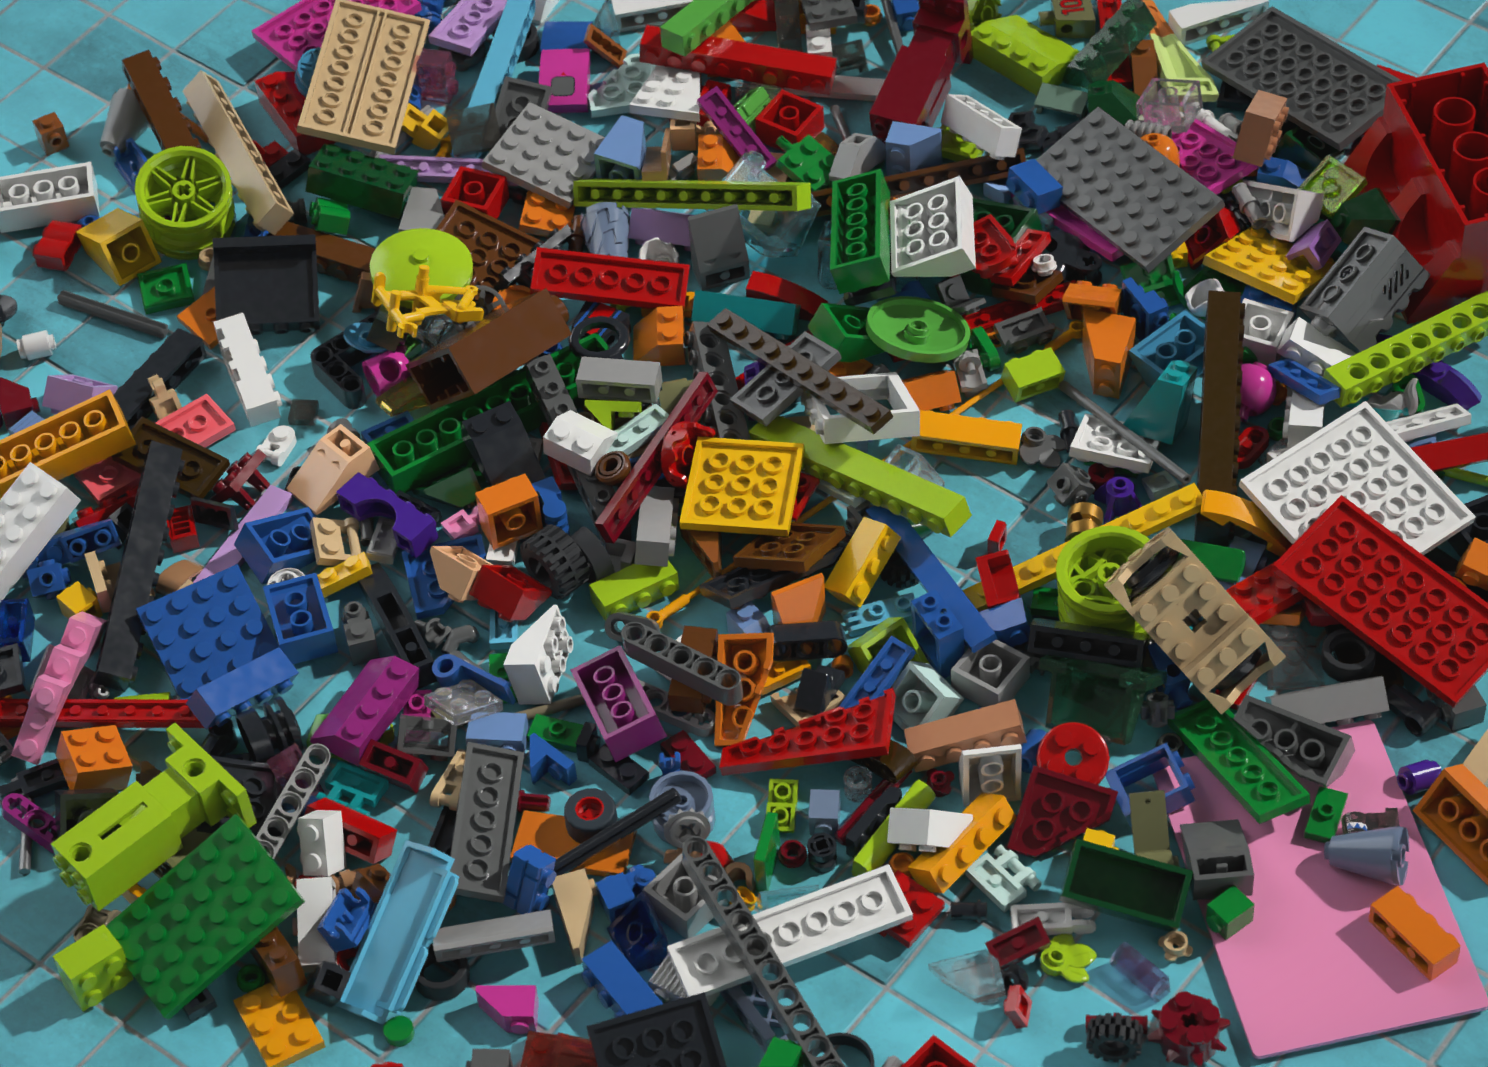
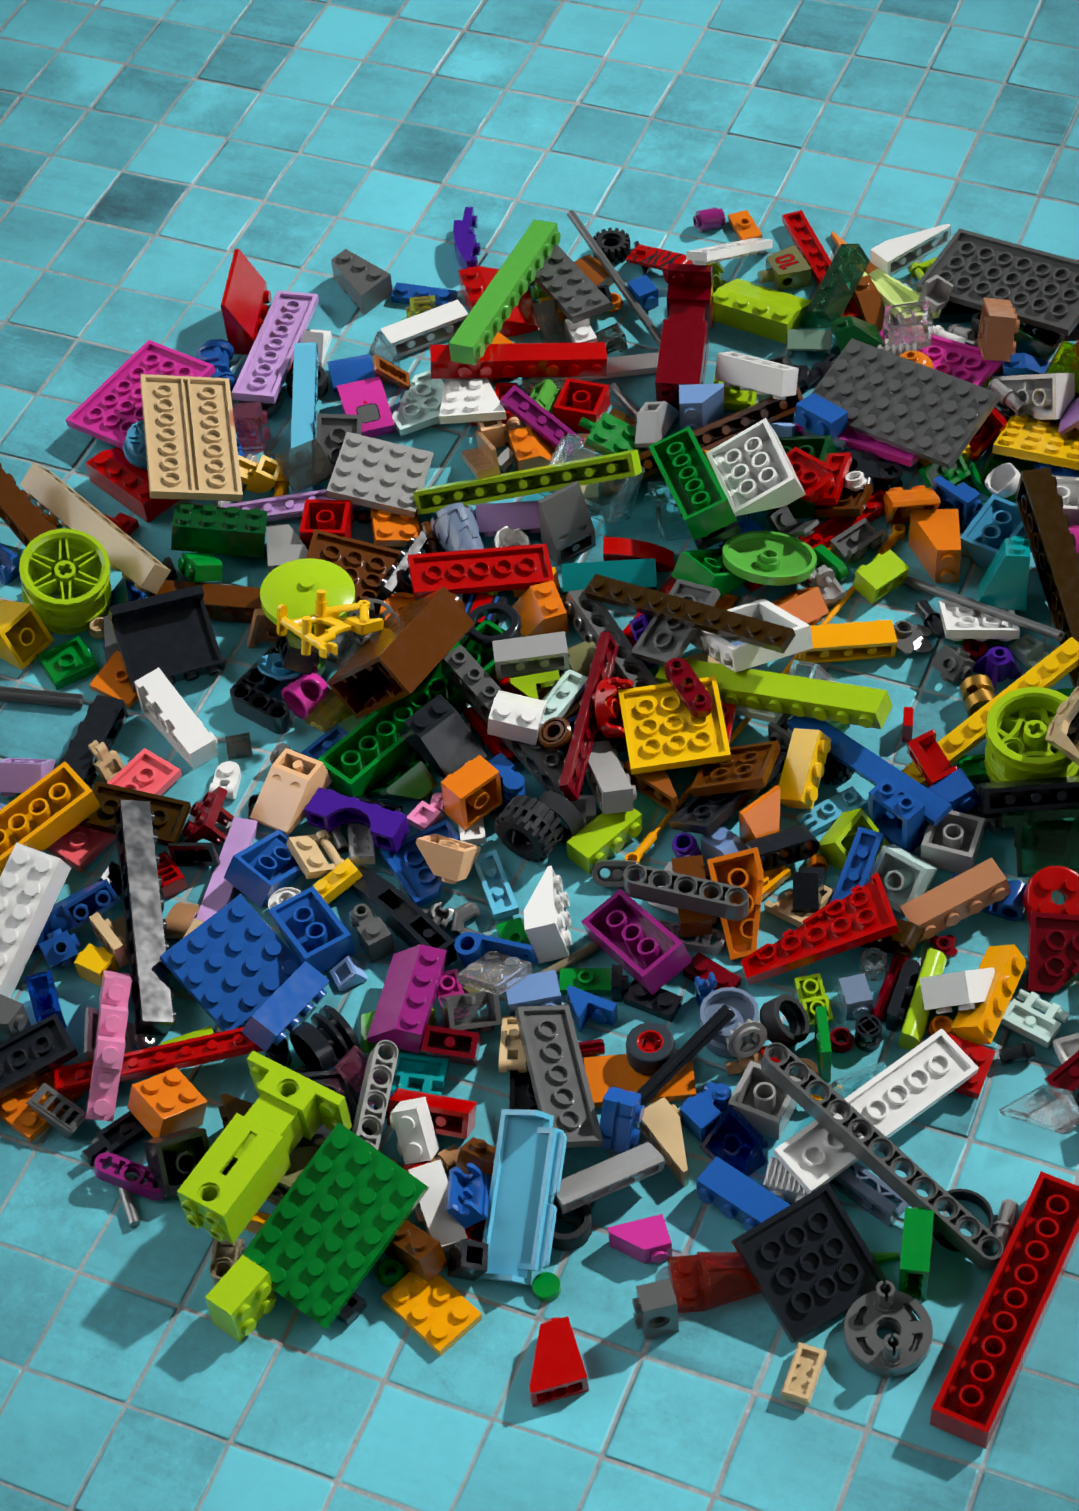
camera: 15 degrees left, 0 degrees up
(109, 506) = (92, 870): red plate -> none
(289, 168) = (144, 530): black plate -> none
(324, 670) = (348, 973): none -> light blue slope
(508, 592) = (496, 865): red slope -> none
(622, 151) = (447, 458): medium blue slope -> none
(709, 616) = (685, 846): none -> dark purple brick
(721, 823) = (795, 1015): none -> black tyre
(769, 456) = (679, 675): none -> dark red plate
(991, 771) = (991, 927): white slope -> none
(1216, 74) = (937, 292): none -> light grey panel

